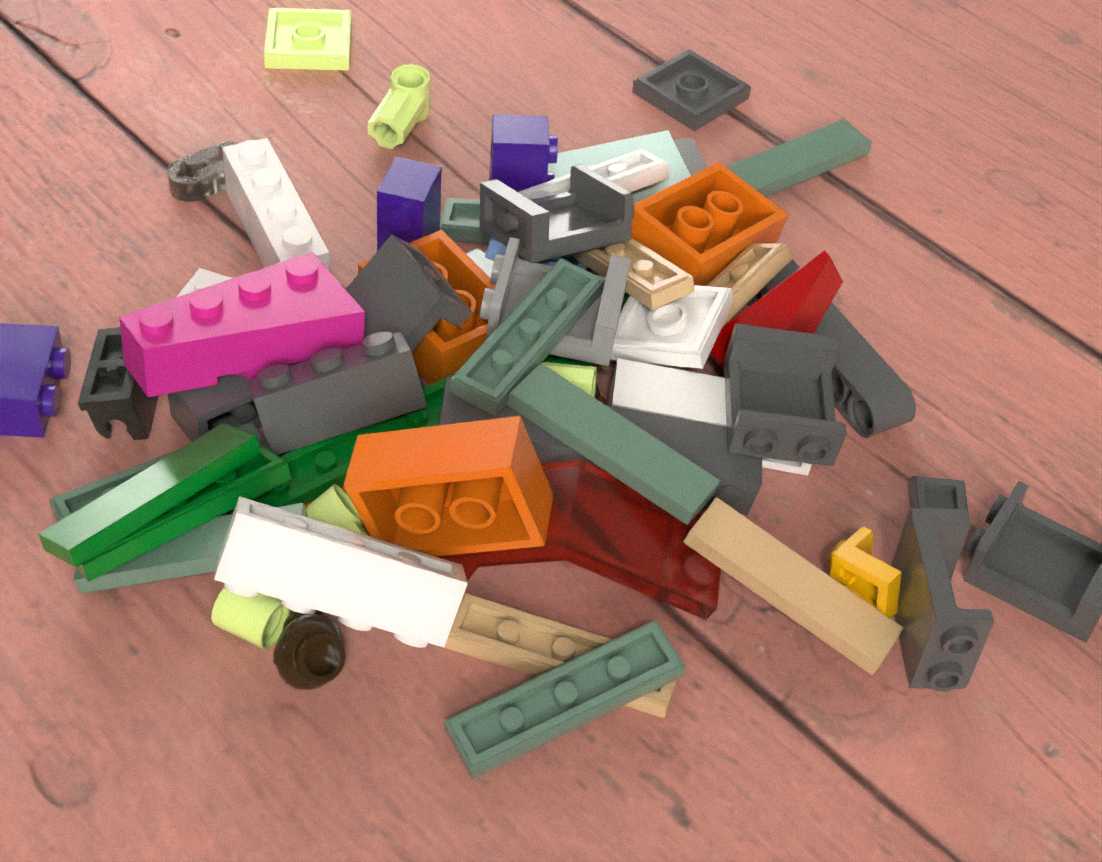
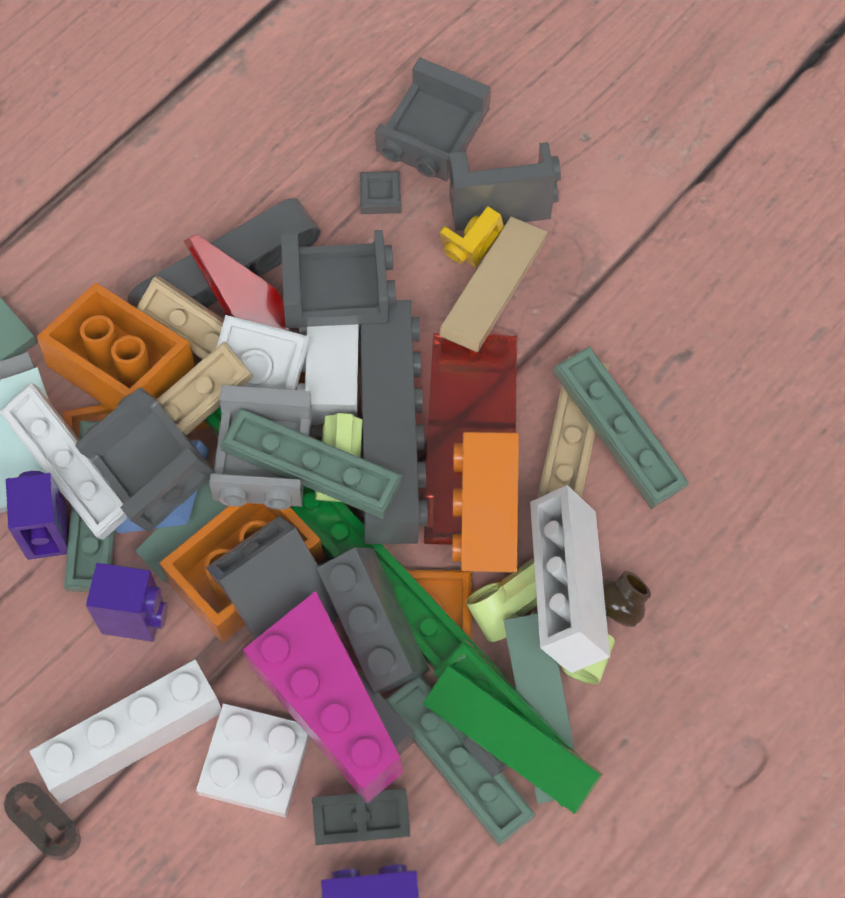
camera: 90 degrees left, 20 degrees up
(613, 443) = (409, 396): sand green tile -> none

